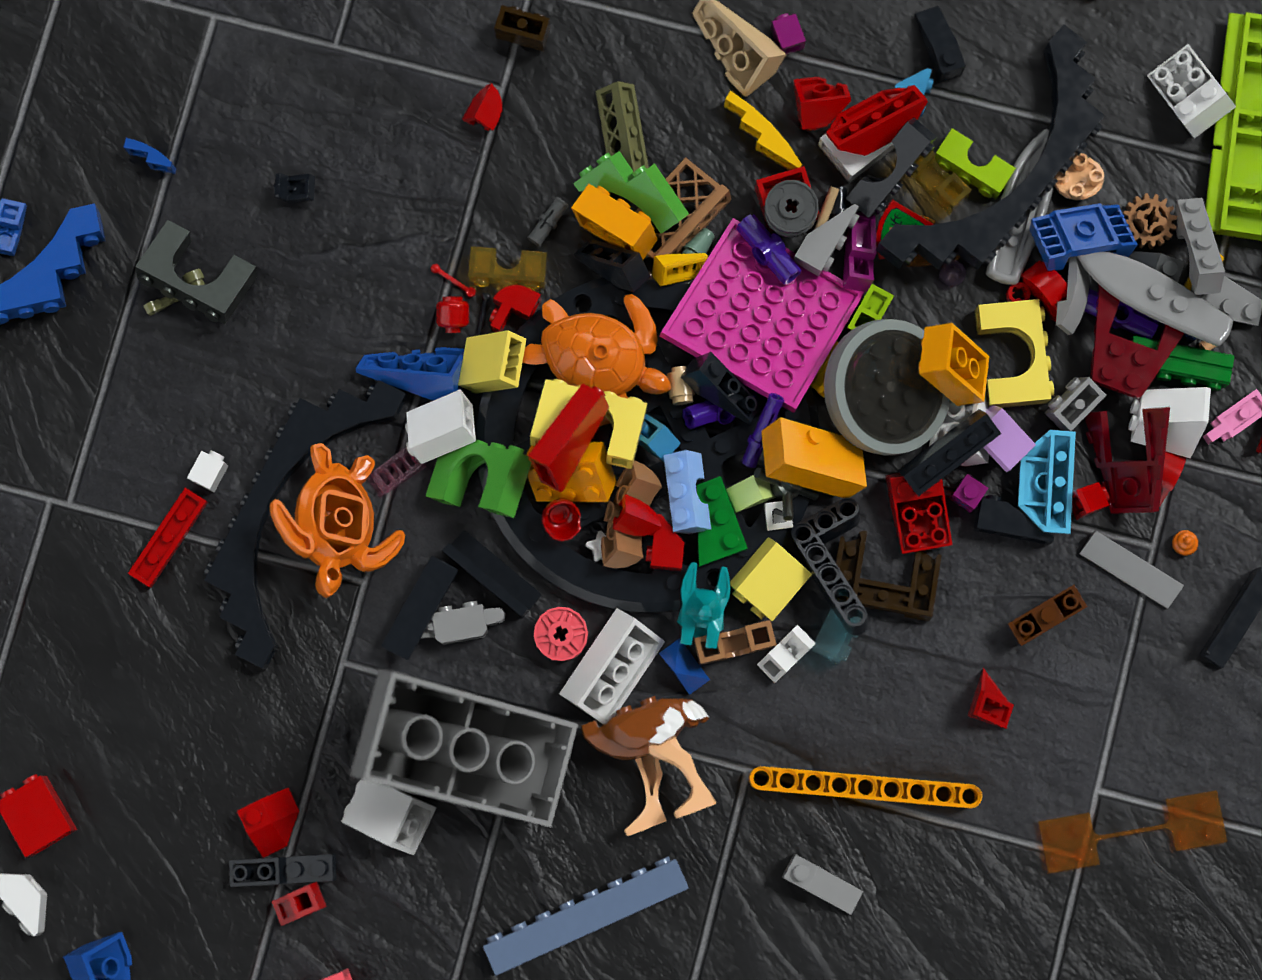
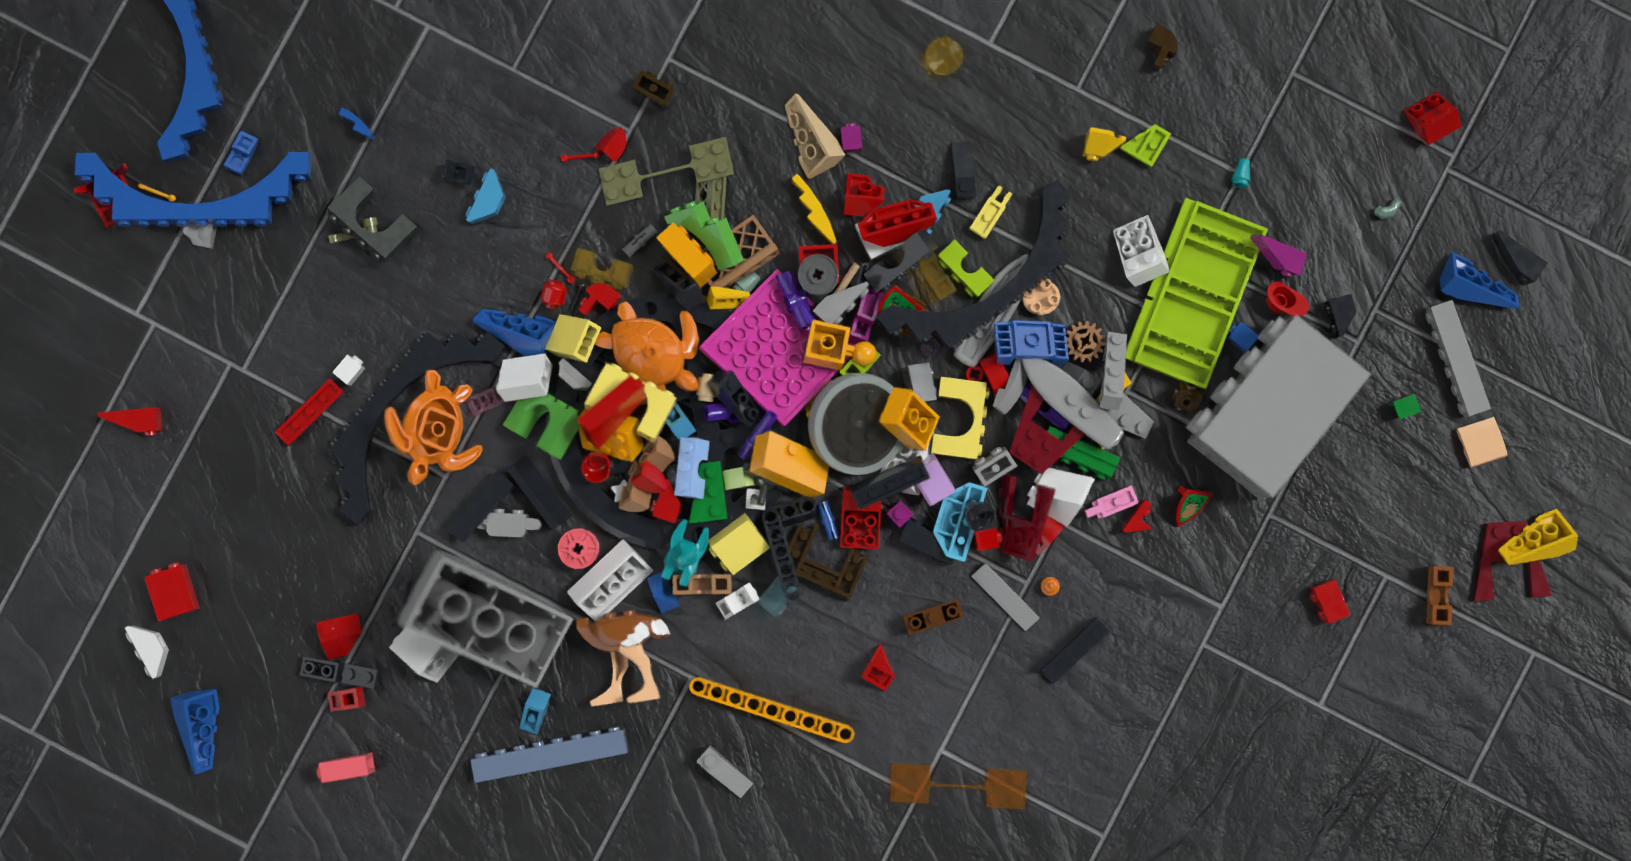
camera: 15 degrees right, 5 degrees up
(339, 214) = (487, 199): none -> dark azure slope
(427, 141) = (565, 158): none -> red hinge
(505, 411) = (573, 377): none -> light grey slope
(552, 862) = (534, 711): none -> dark azure slope
(613, 100) = (709, 161): none -> olive hinge
(827, 297) = (837, 340): none -> light orange brick
(877, 524) = (828, 520): none -> blue pin
(952, 309) = (920, 380): none -> brick
(986, 89) = (989, 214): none -> light yellow hinge
(1075, 466) = (978, 515): none -> black helmet

